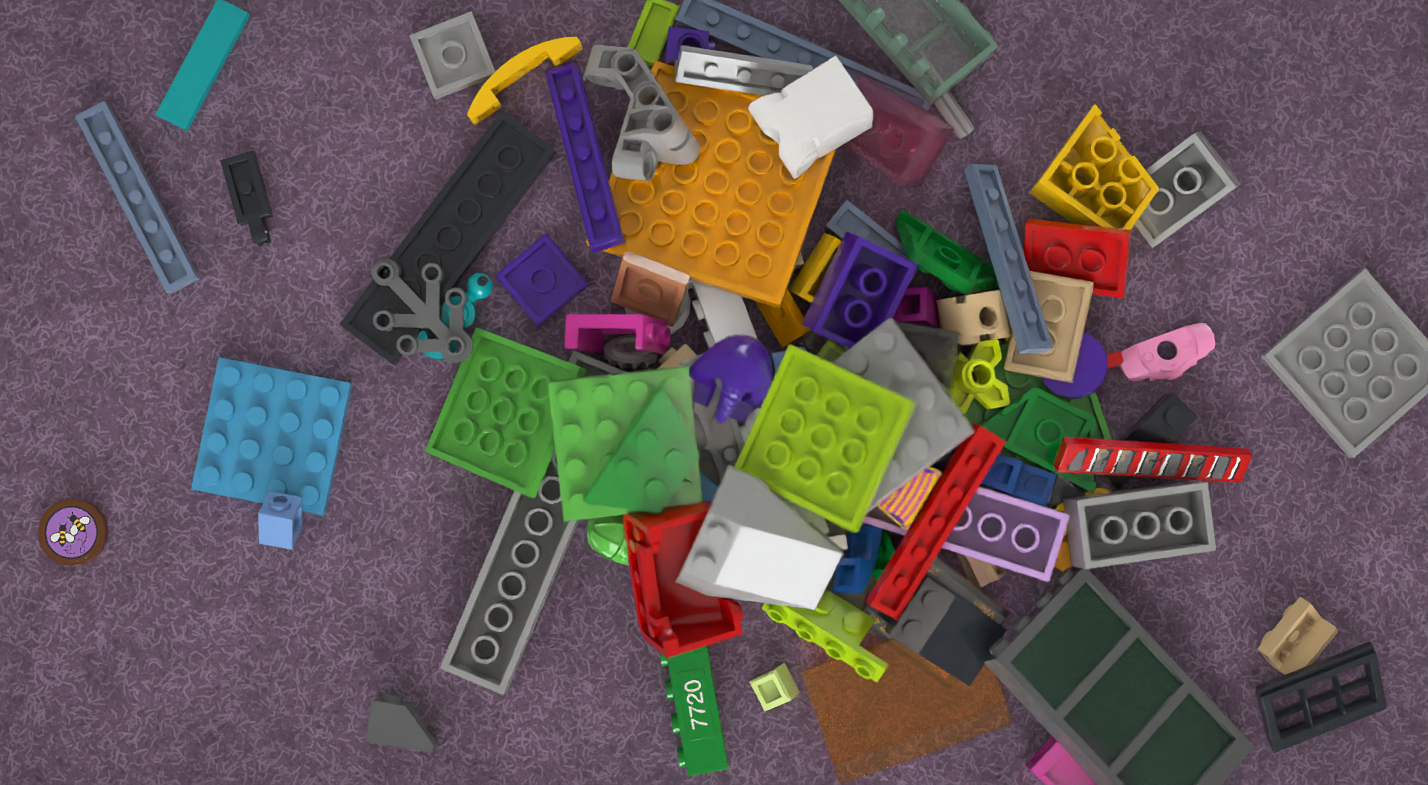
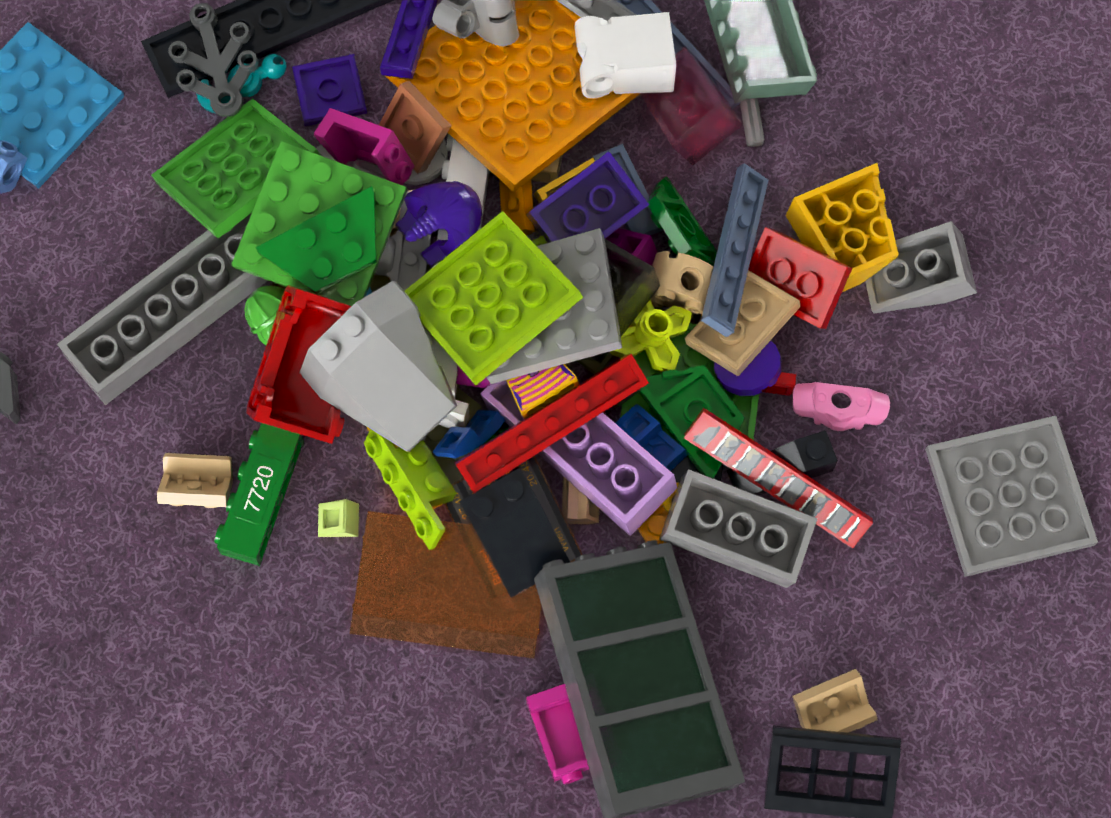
camera: 30 degrees right, 15 degrees down
(632, 722) = (195, 480): none -> tan bracket

